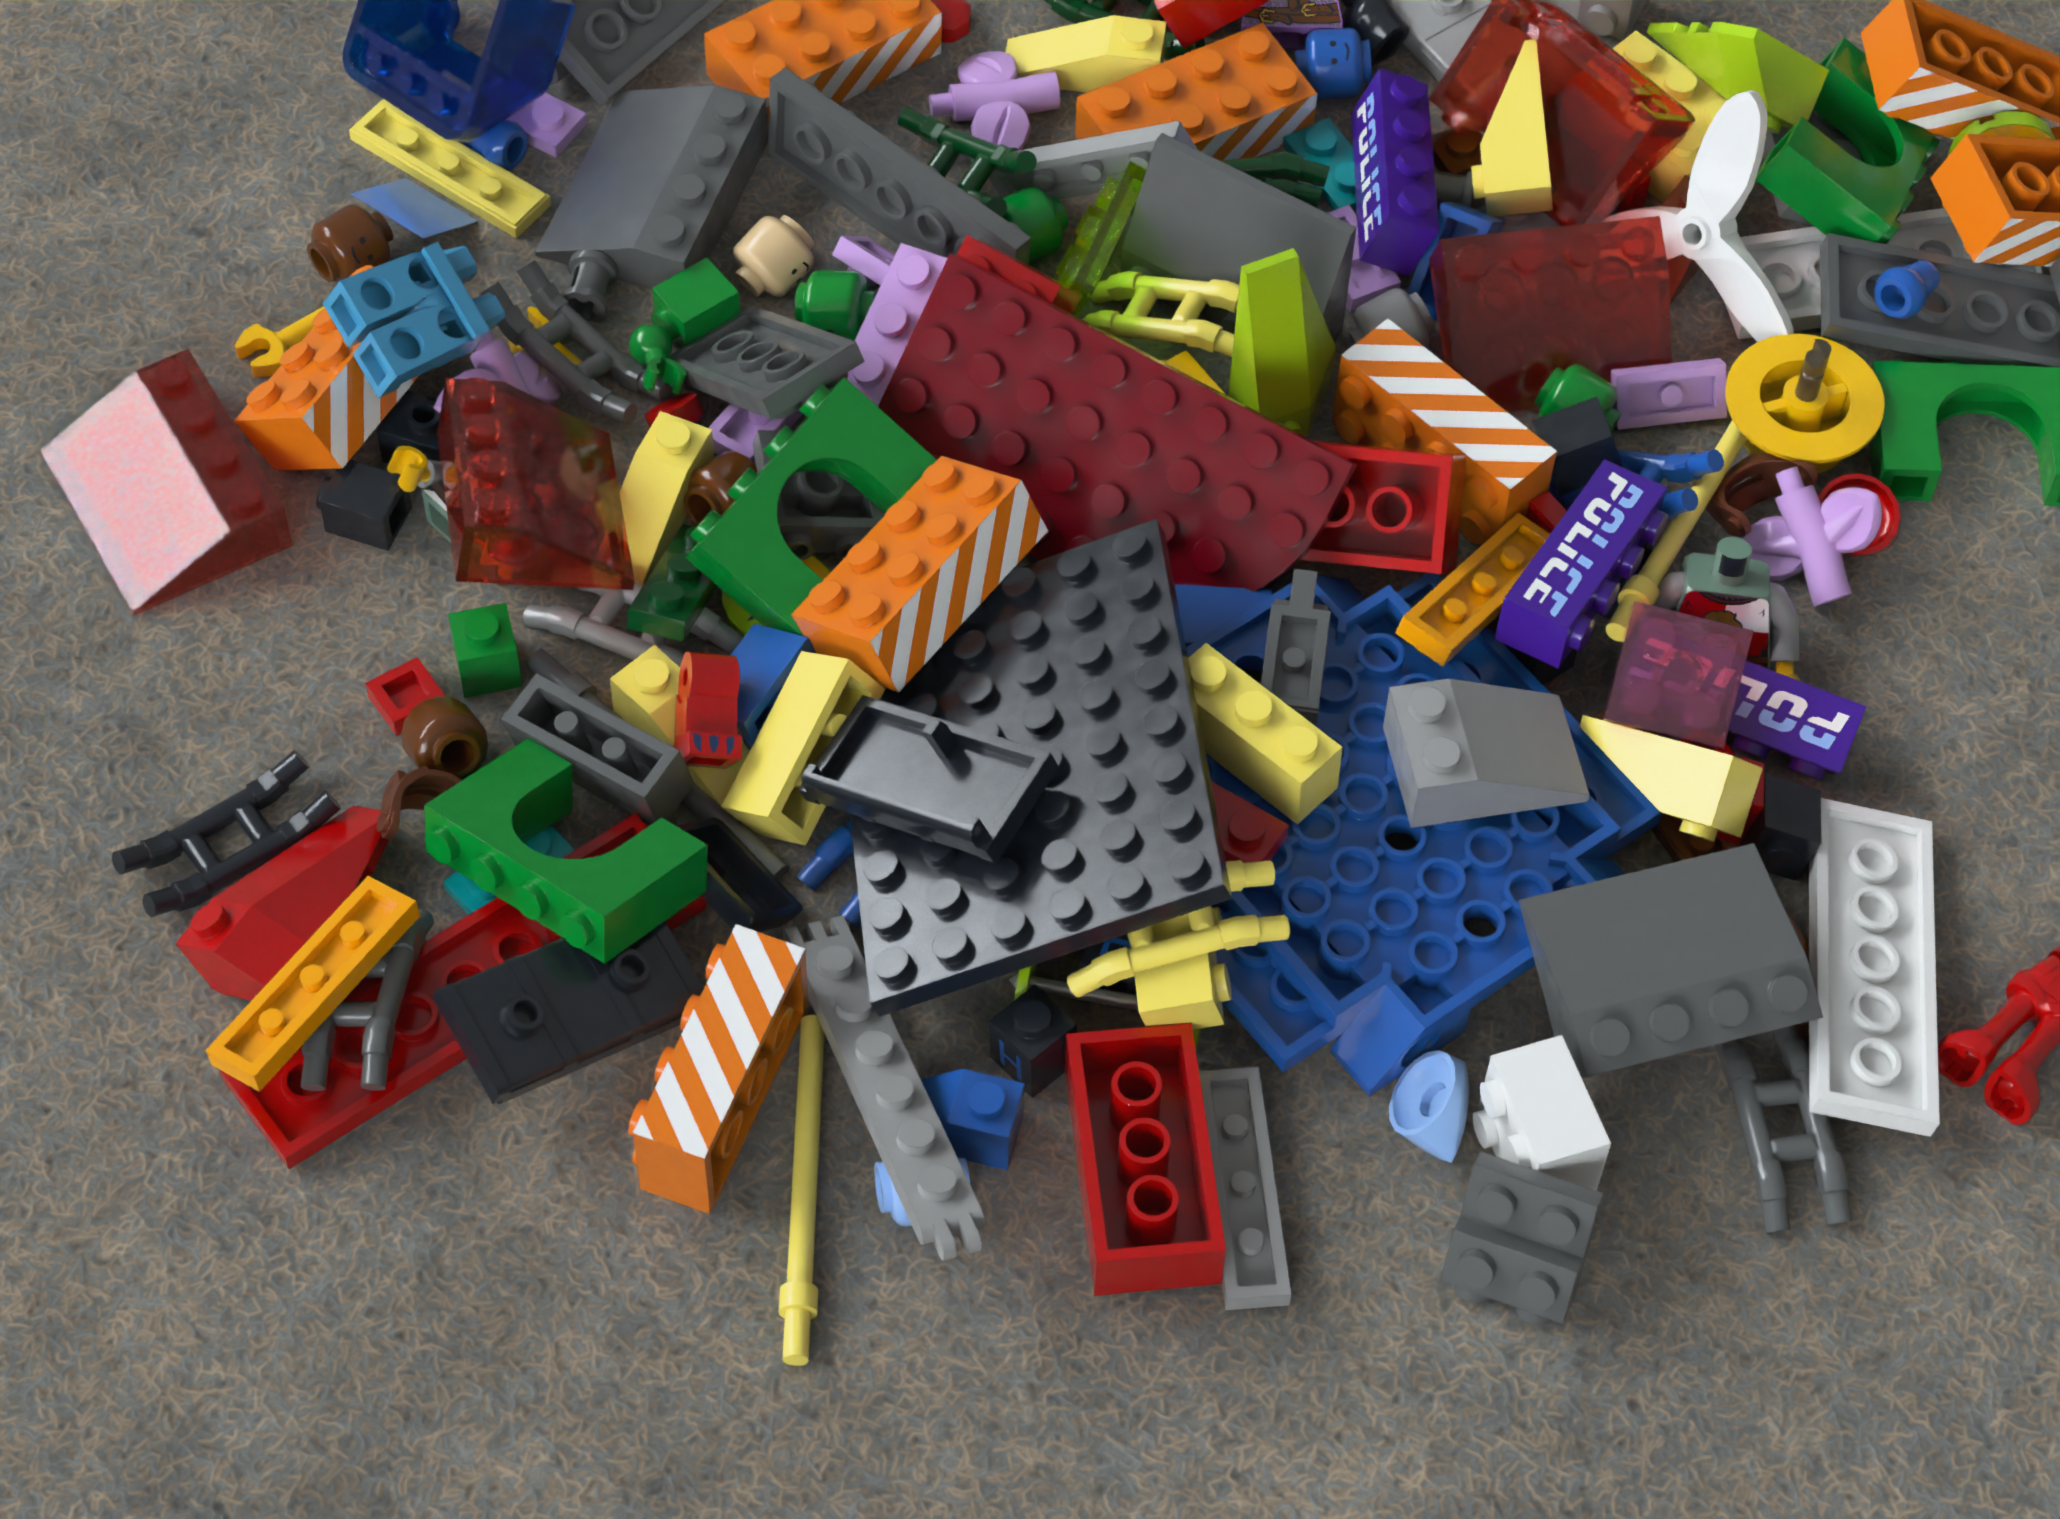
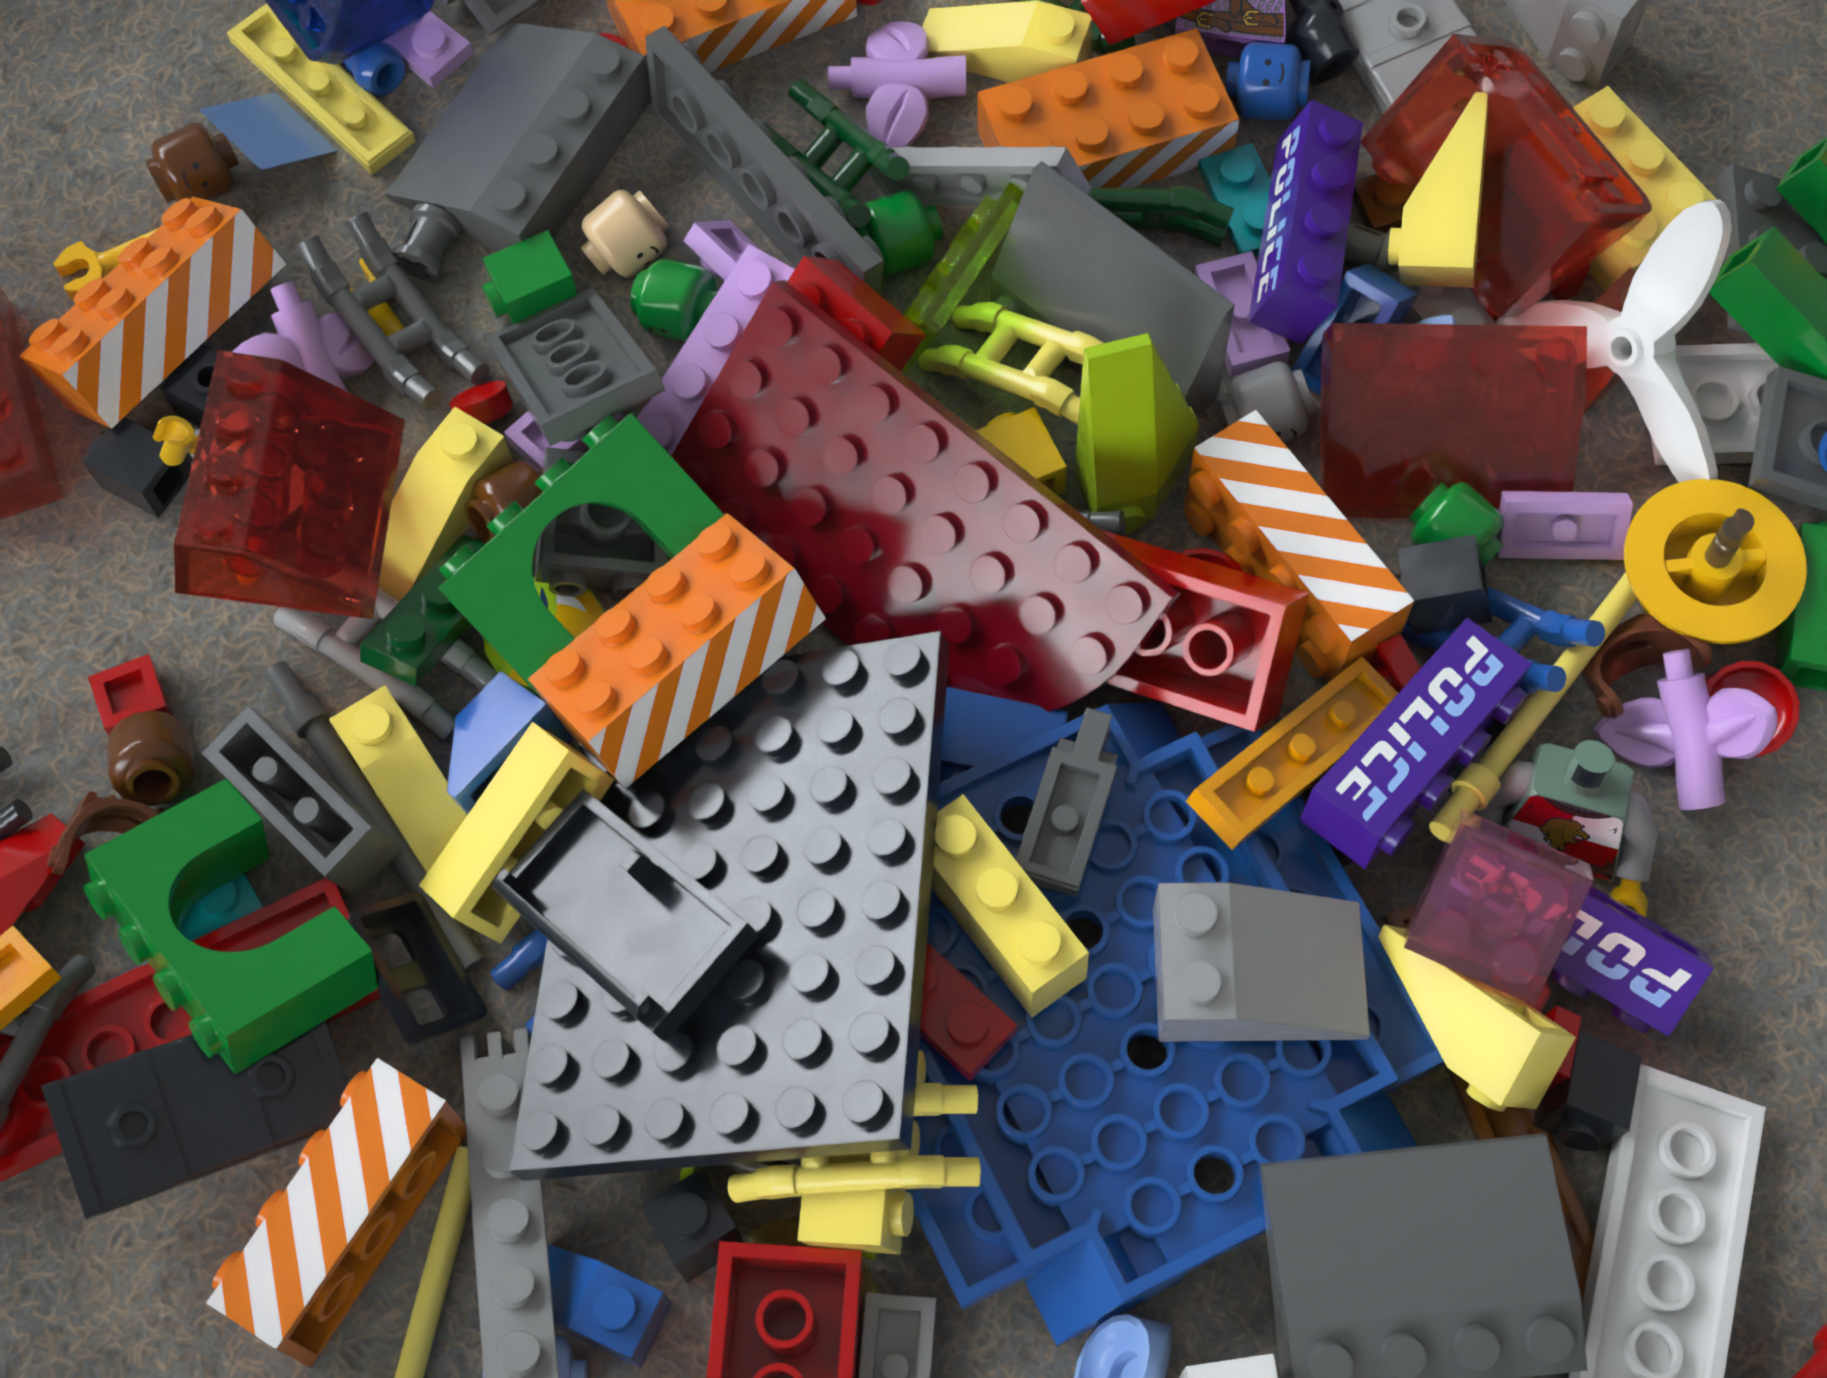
camera: 15 degrees right, 10 degrees up
(412, 314) = (200, 271): dark azure hips -> none
(485, 650) = (218, 657): green brick -> none
(652, 348) = (473, 325): green arm -> none
(708, 710) = (419, 777): red leg -> none
(1747, 59) = (1724, 156): lime wedge -> none

